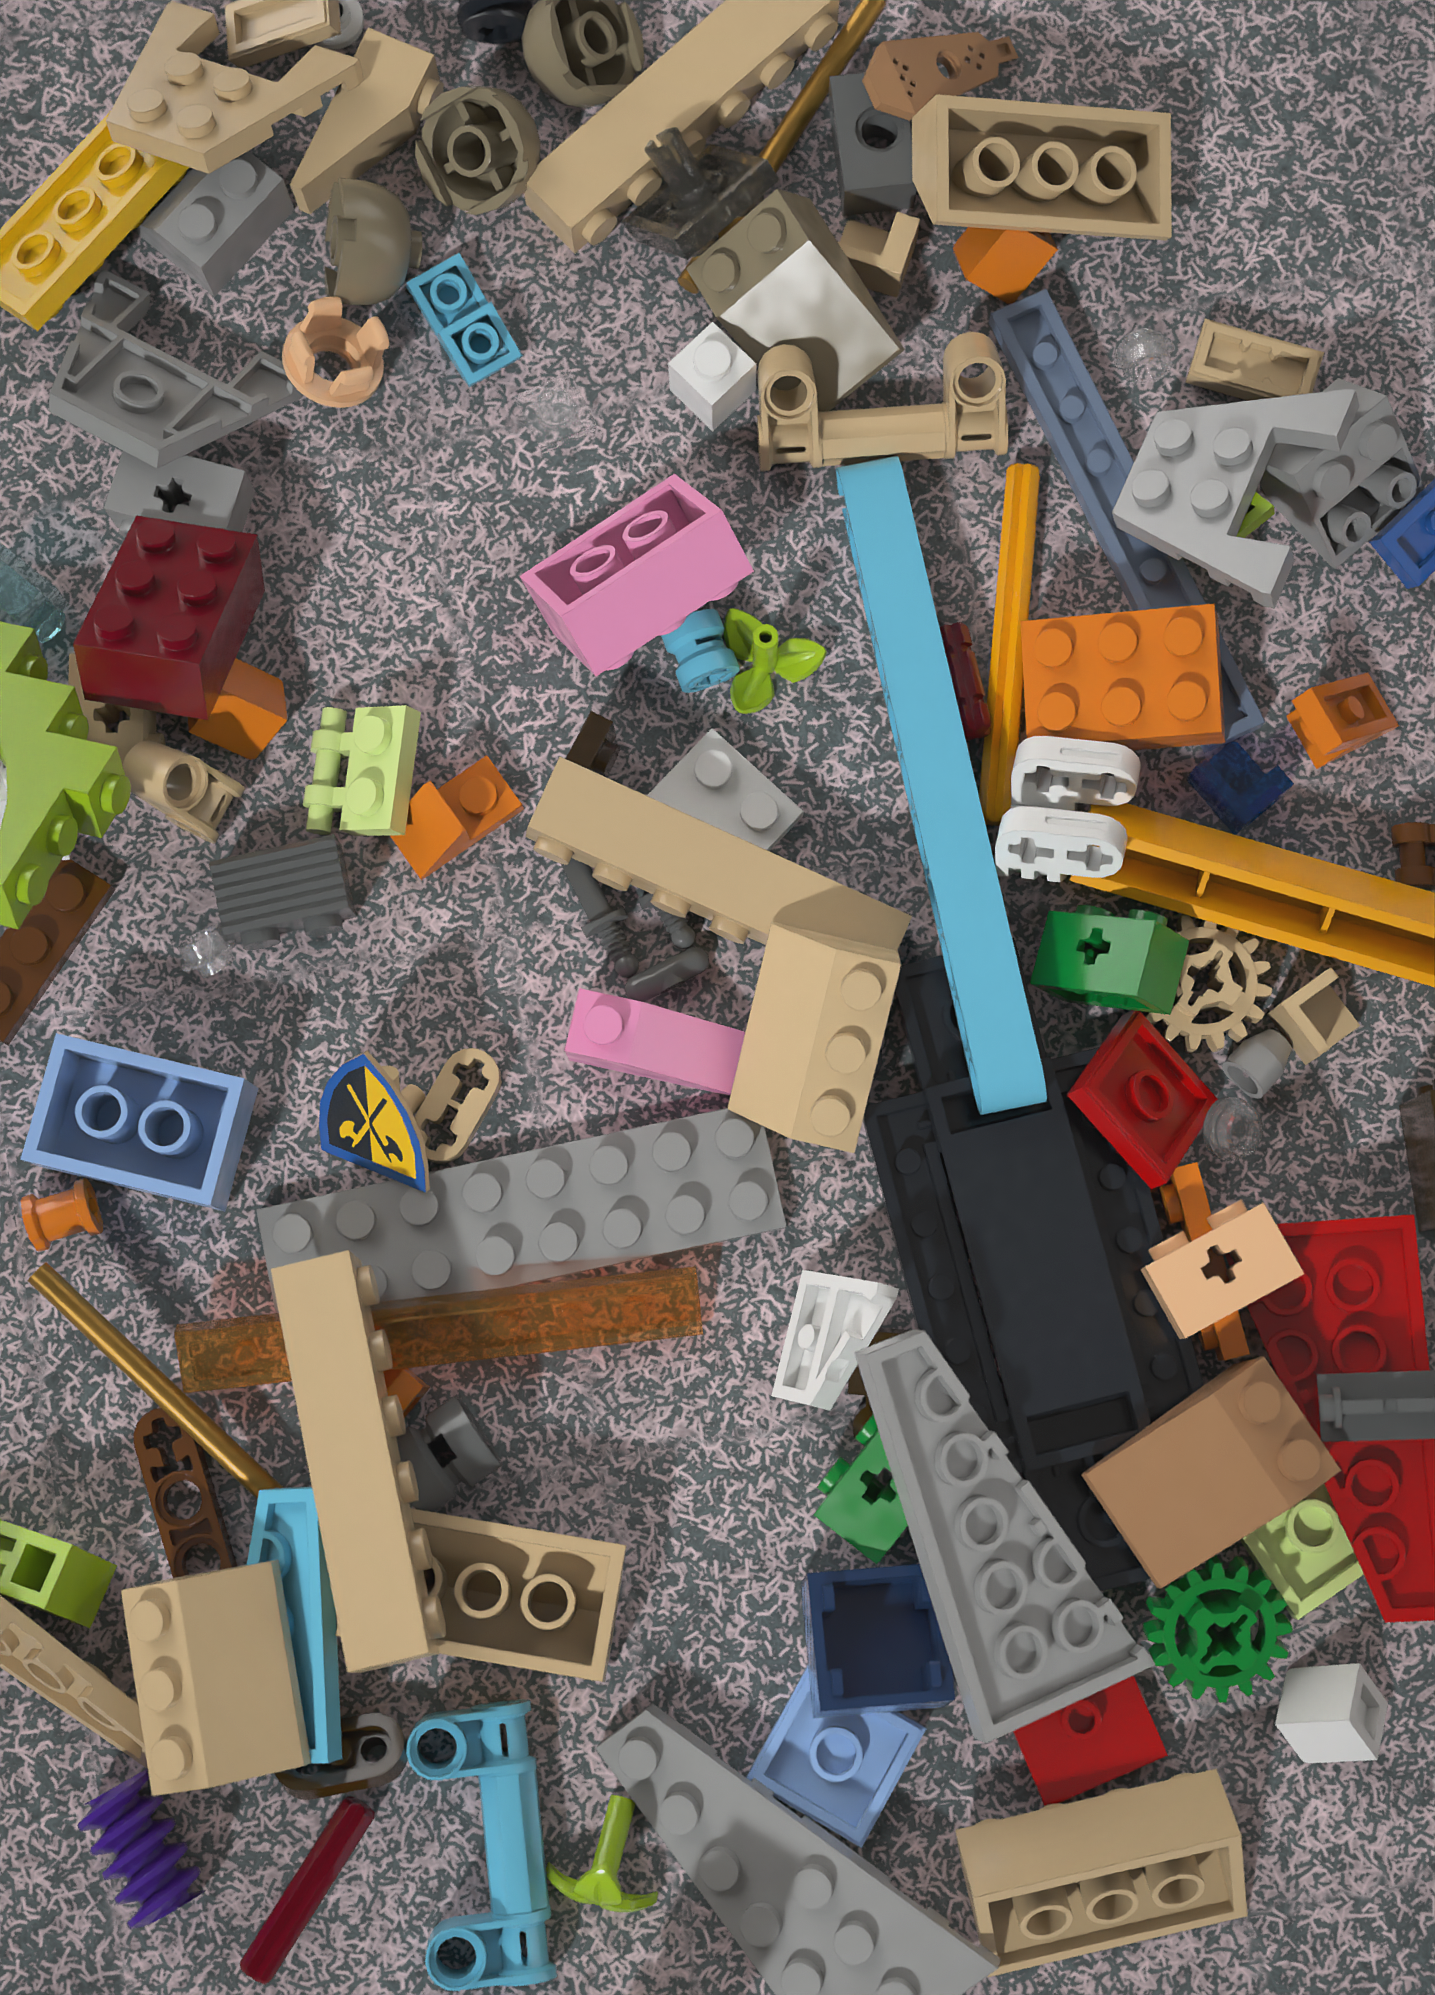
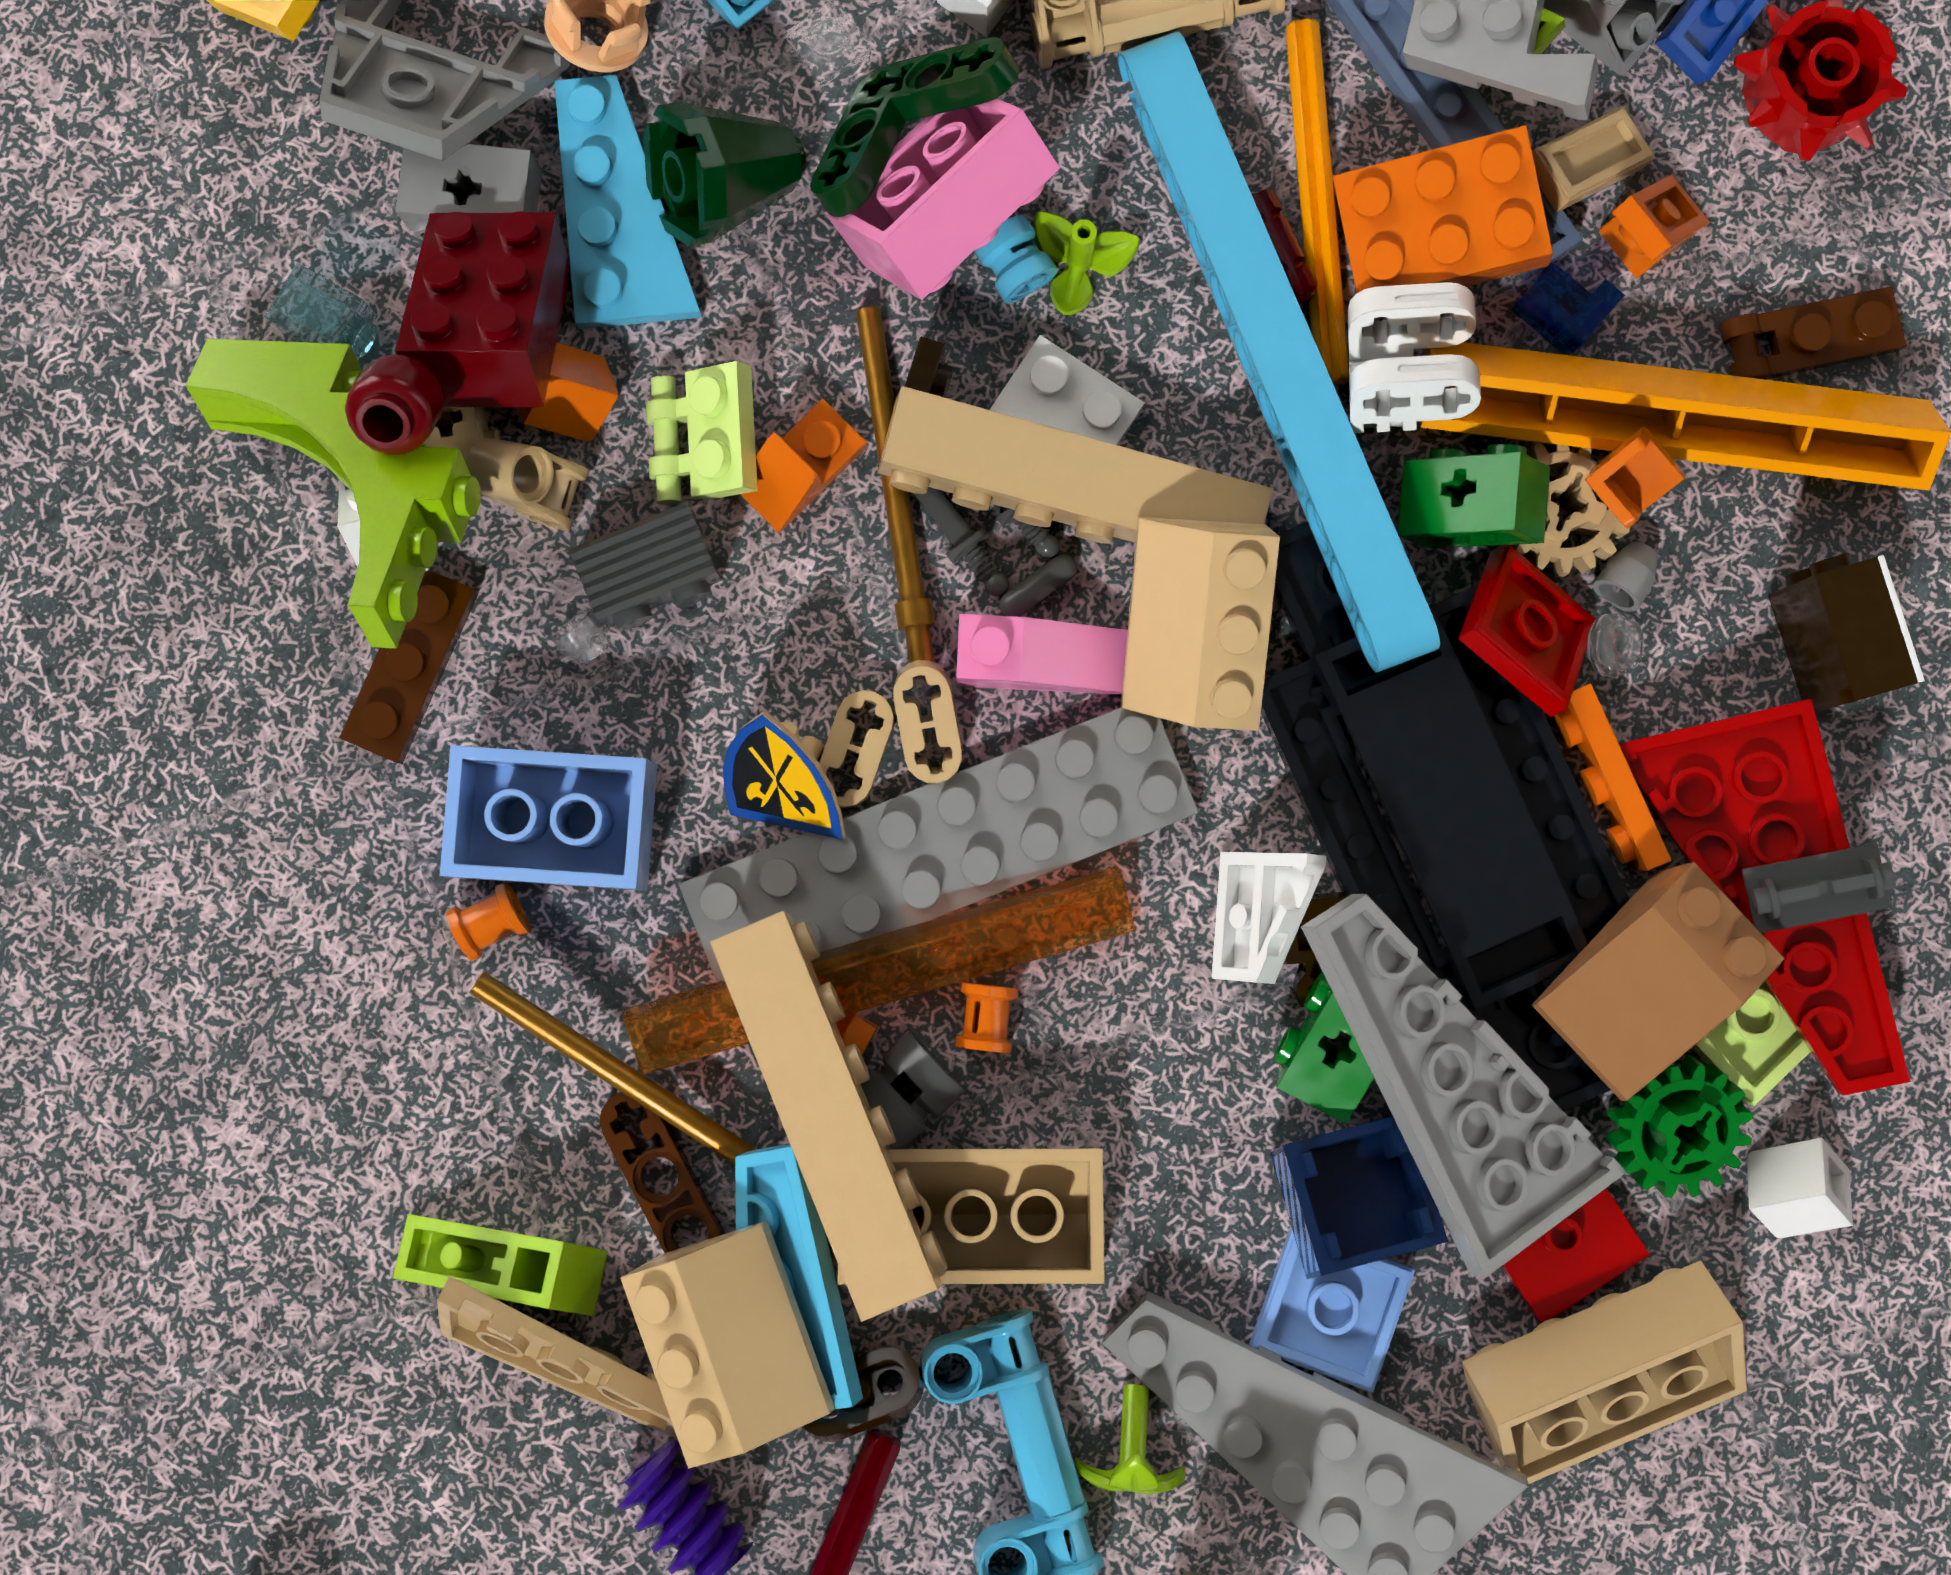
camera: 15 degrees left, 5 degrees up
(62, 695) = (394, 404): none -> dark red head
(318, 559) = (618, 249): none -> medium azure wing
(424, 517) = (717, 168): none -> dark green cone
(537, 1396) = (986, 1017): none -> orange bush
(539, 978) = (913, 611): none -> pearl gold bar
(547, 1089) = (912, 723): none -> tan beam
(608, 475) = (899, 94): none -> dark green beam
(1260, 1267) = (1672, 771): light nougat brick -> none
(1270, 964) = (1634, 476): none -> orange panel
(1284, 644) = (1590, 158): none -> tan tile
(1314, 1018) = (1676, 524): tan panel -> none

